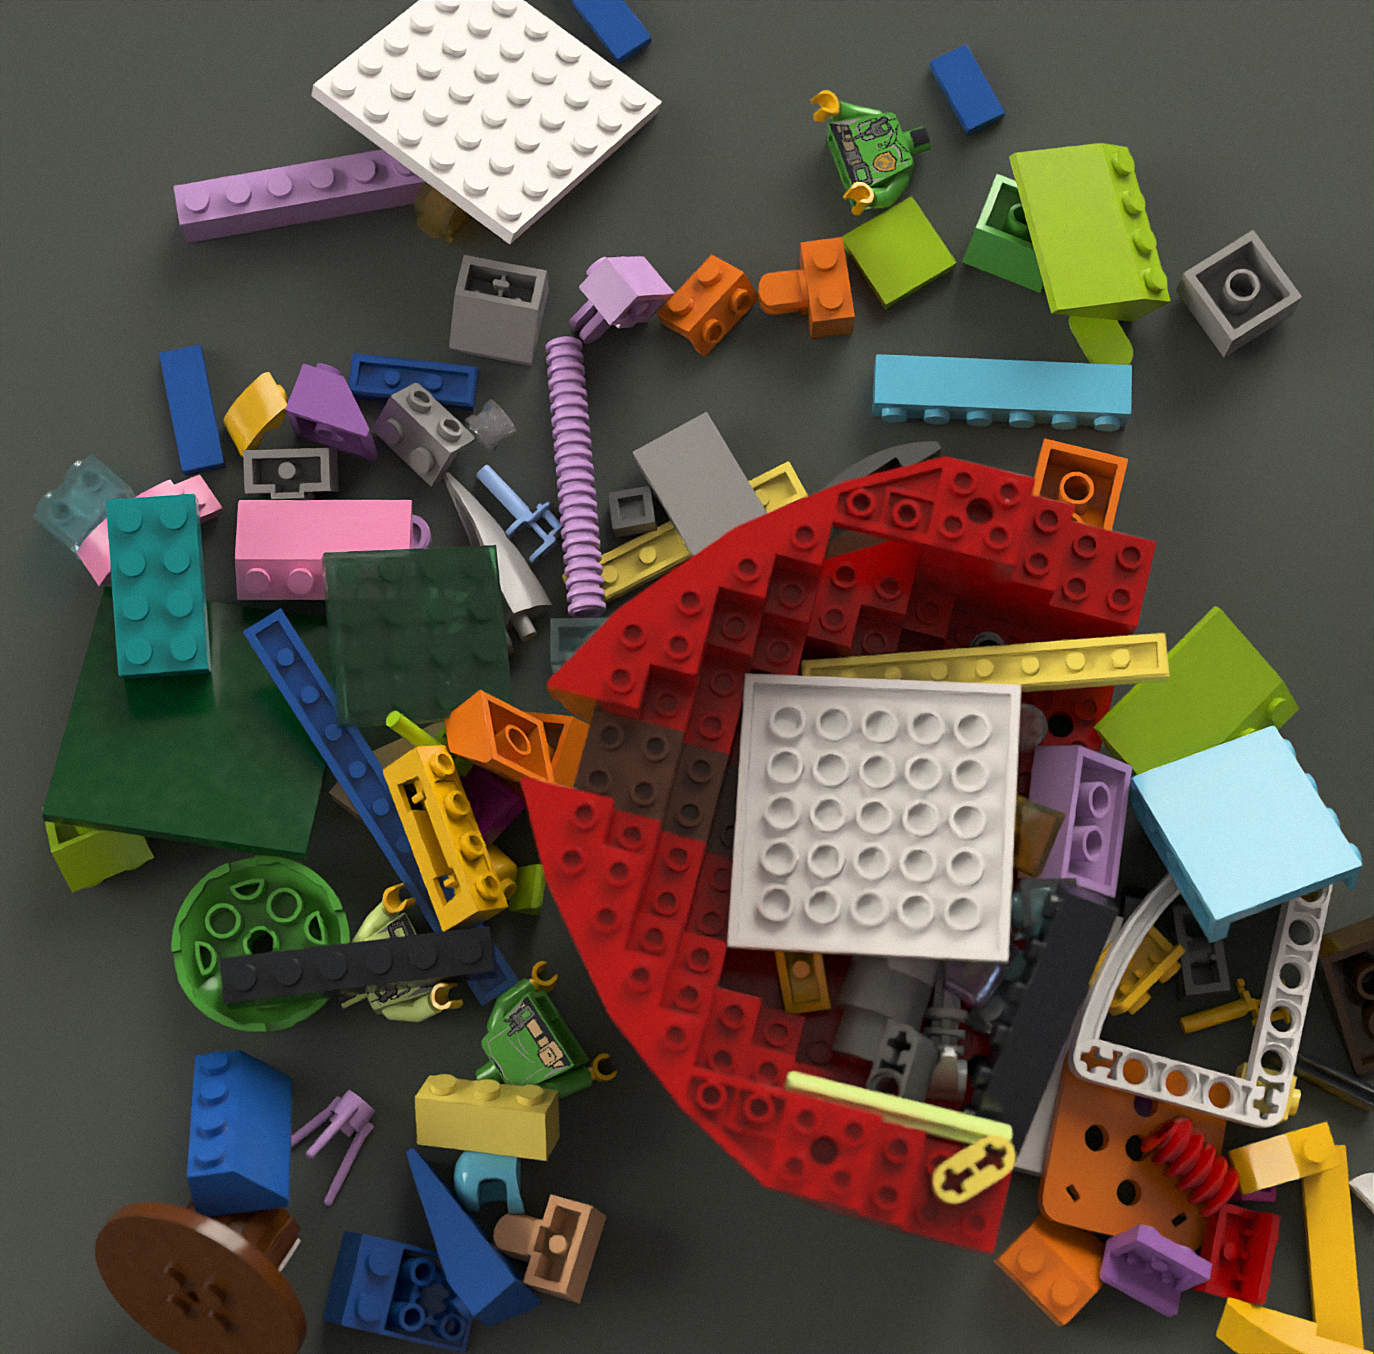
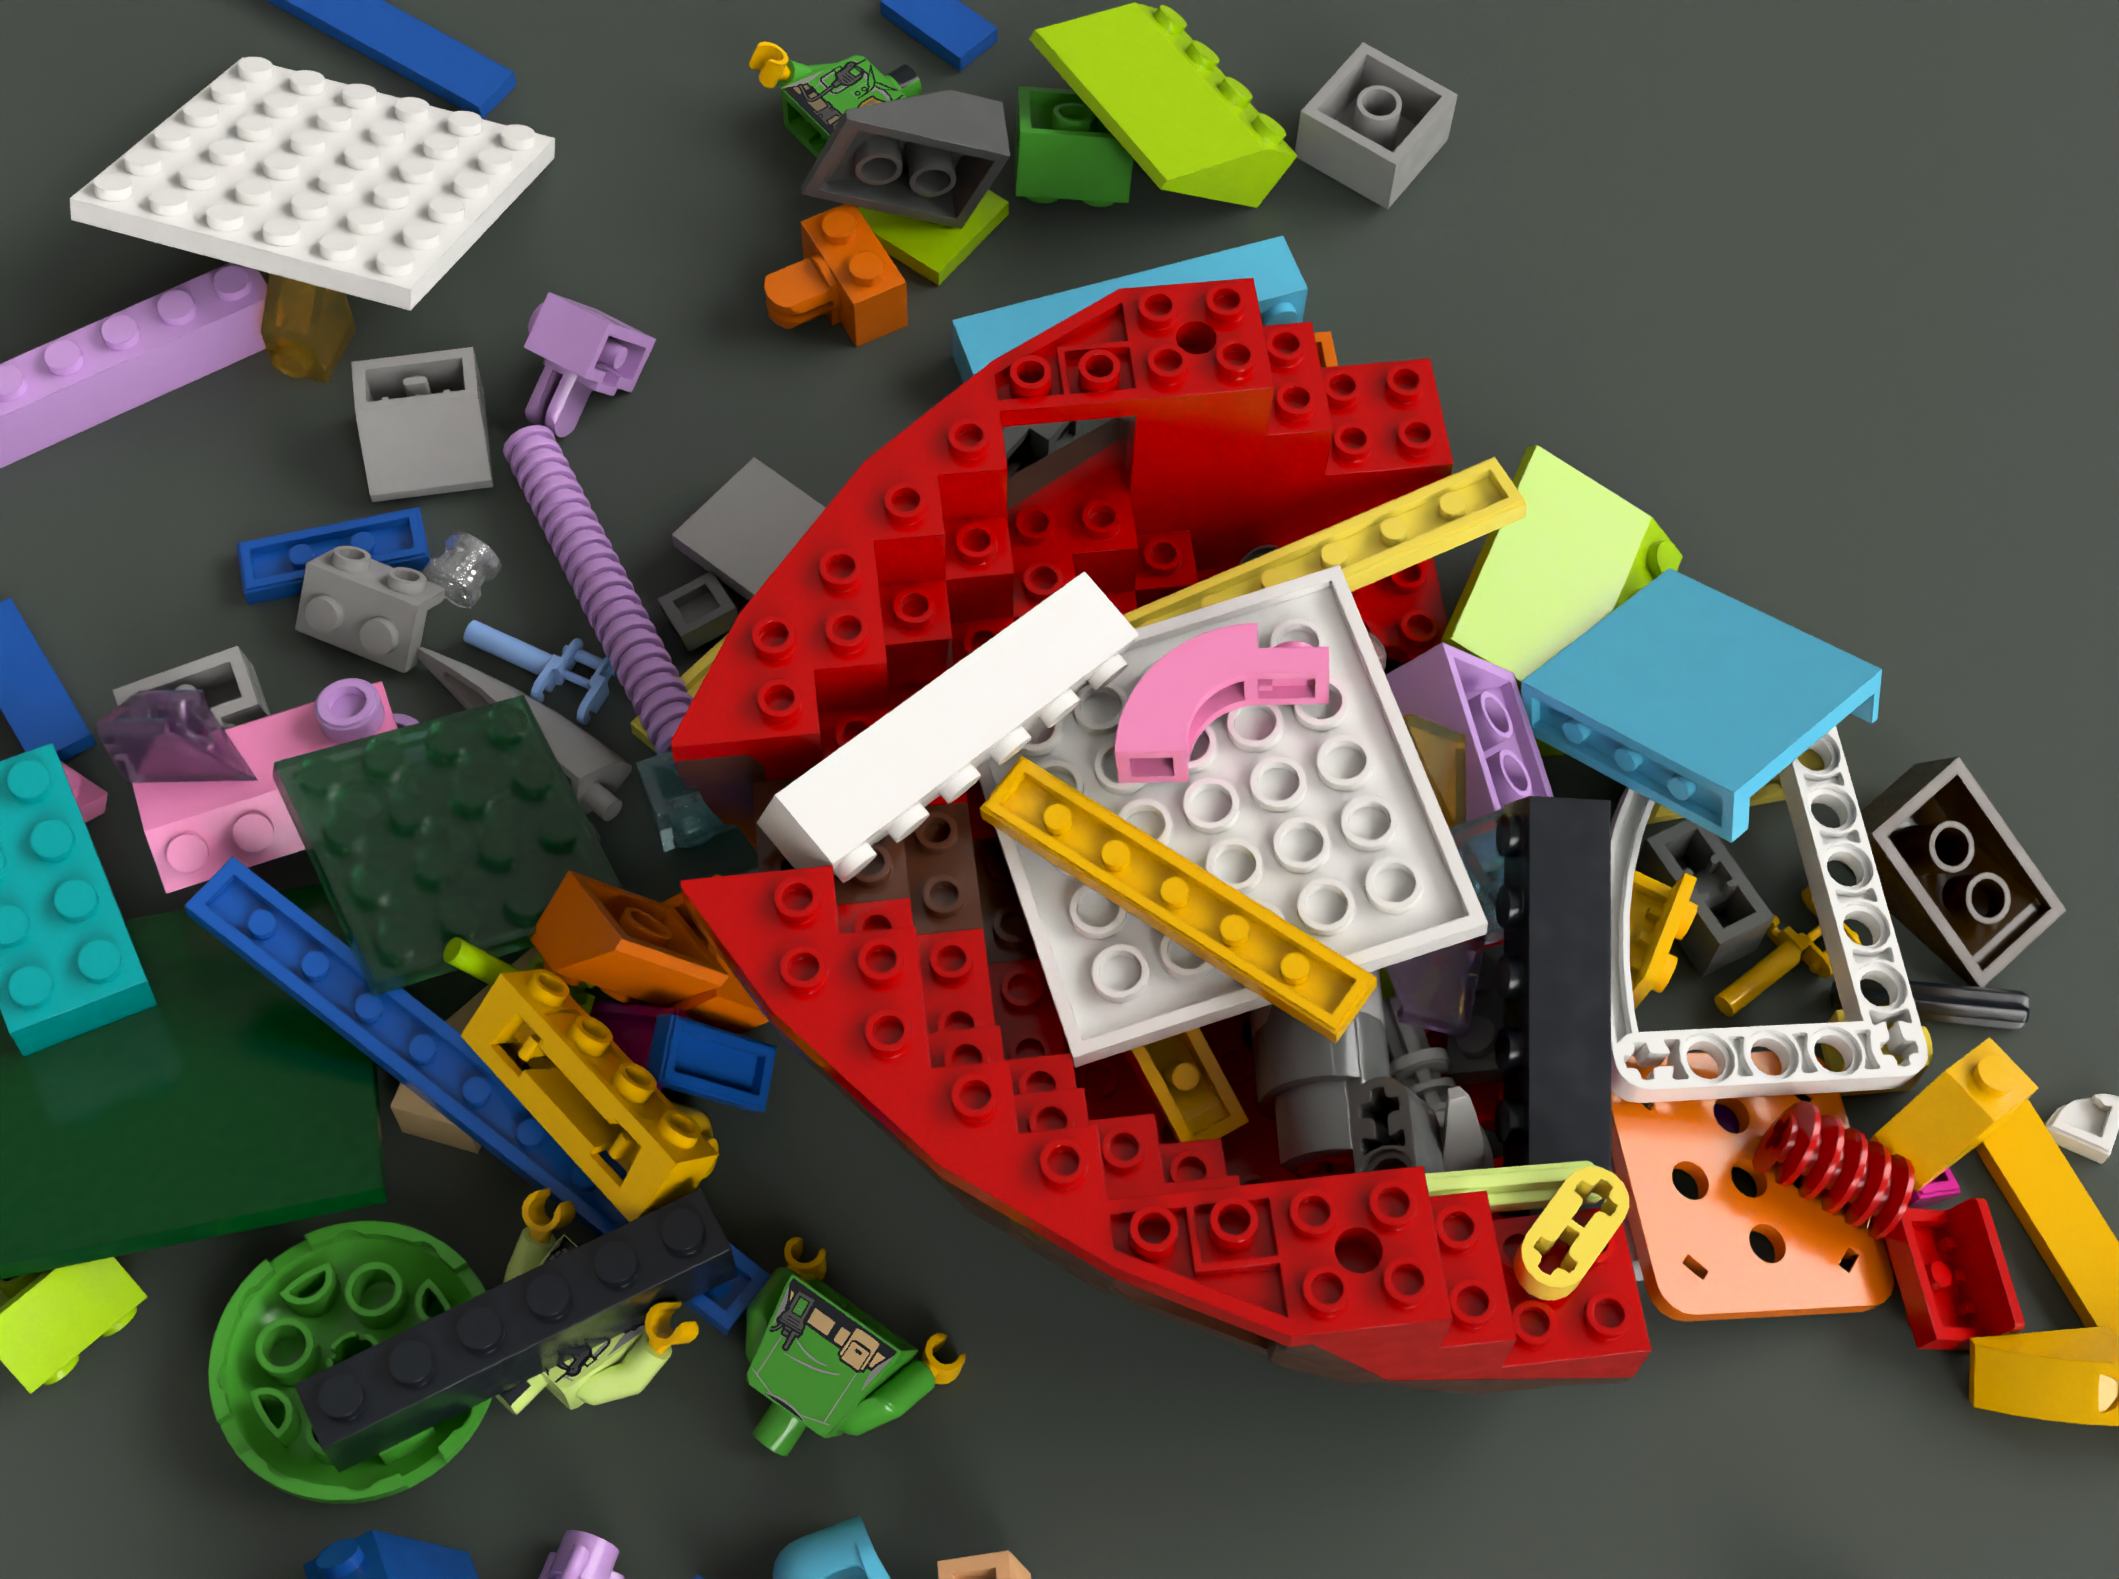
camera: 25 degrees left, 15 degrees down
(255, 412) = (116, 643): yellow slope -> none
(269, 500) = (170, 740): none -> clear purple slope
(327, 412) = (222, 601): medium lavender slope -> none
(383, 520) = (349, 710): none -> lavender tile
(487, 1117) = (795, 1483): light yellow brick -> none
(513, 831) = (711, 1063): none -> blue tile
(530, 890) = (740, 1148): lime slope -> none
(709, 304) = (707, 341): orange bracket -> none
(724, 722) = (948, 730): none -> white brick
(827, 871) = (1179, 899): none -> yellow tile
(893, 738) = (1202, 683): none -> bright pink arch
(900, 229) = (914, 156): none -> dark grey slope
(1055, 1267) = (1712, 1394): orange slope -> none
(1102, 340) = (1218, 224): lime tile -> none
(1152, 1268) = (1850, 1332): medium lavender bracket -> none

